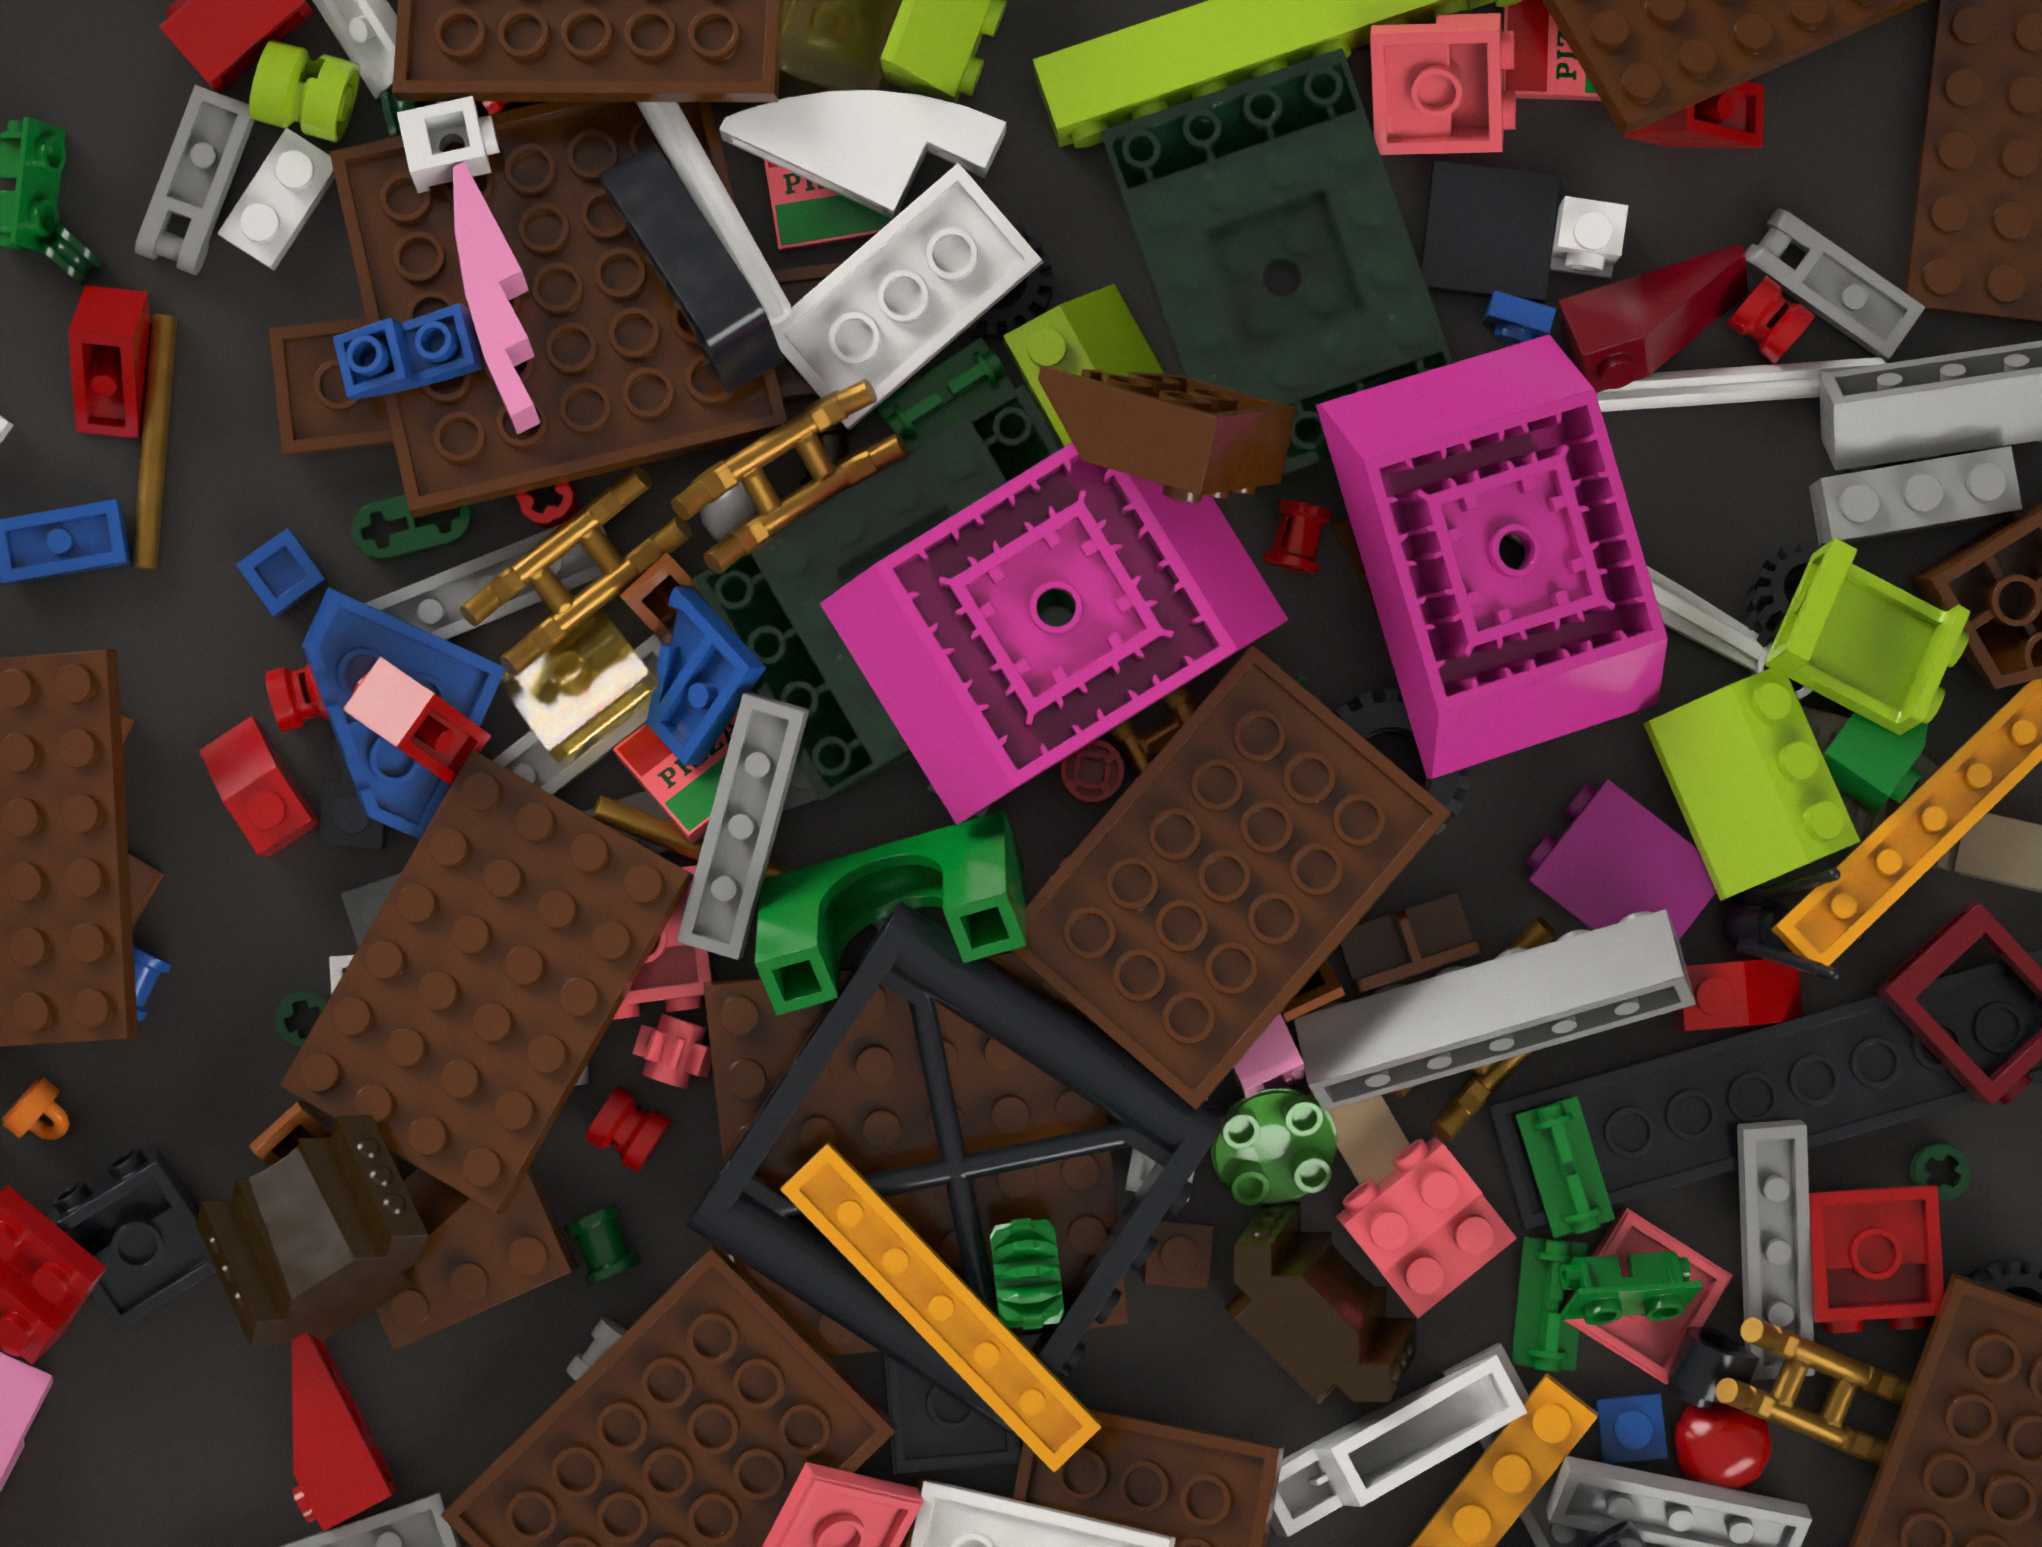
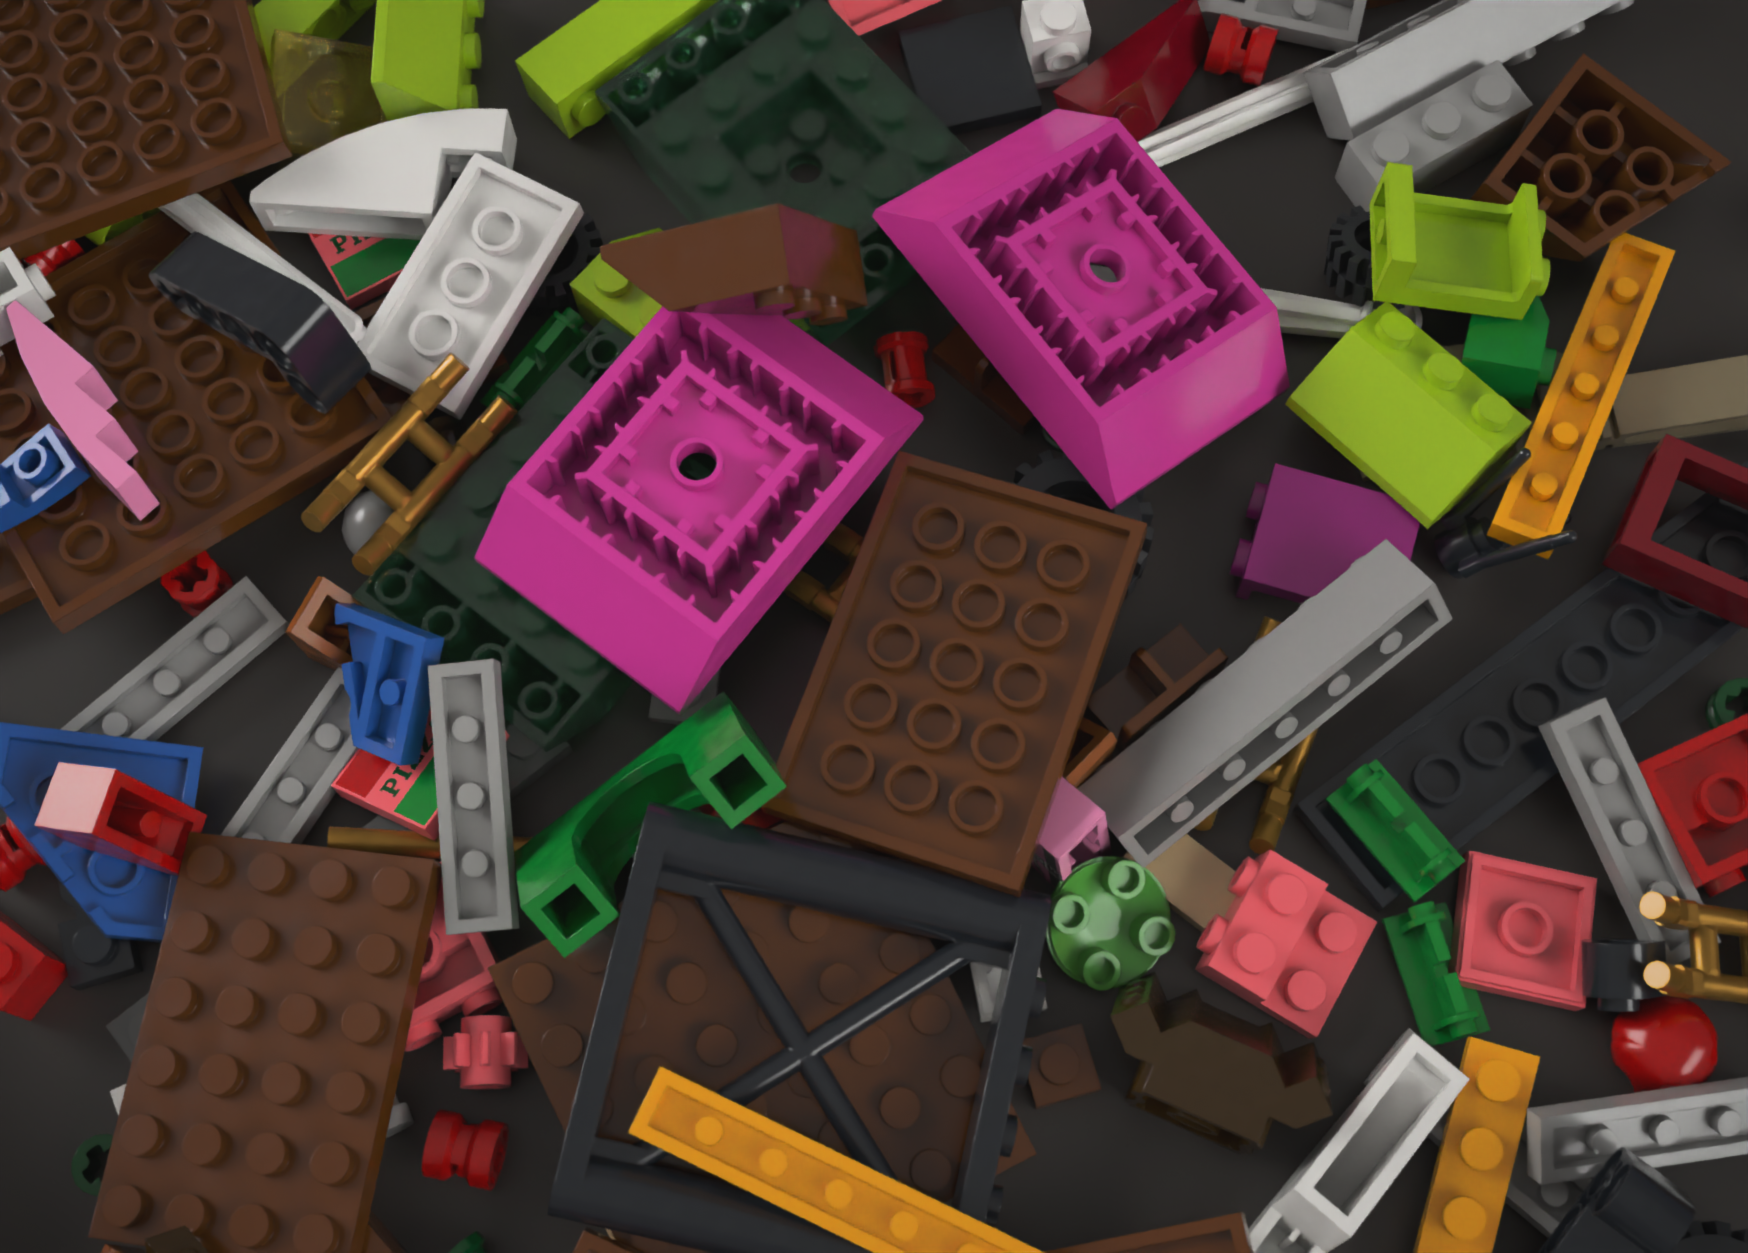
camera: 20 degrees left, 15 degrees down
(408, 541) = (80, 658): dark green beam -> none
(569, 610) = (201, 644): pearl gold piece -> none
(579, 685) = (275, 734): clear yellow plate -> none
(1027, 1273) = (915, 1130): green gear -> none
(1093, 779) = (797, 651): red wheel -> none
(1517, 318) = (1015, 113): blue plate -> none
(1631, 1428) = (1571, 1065): blue plate -> none
(1654, 1287) = (1532, 912): green hinge -> none
(1740, 995) = (1486, 614): red slope -> none

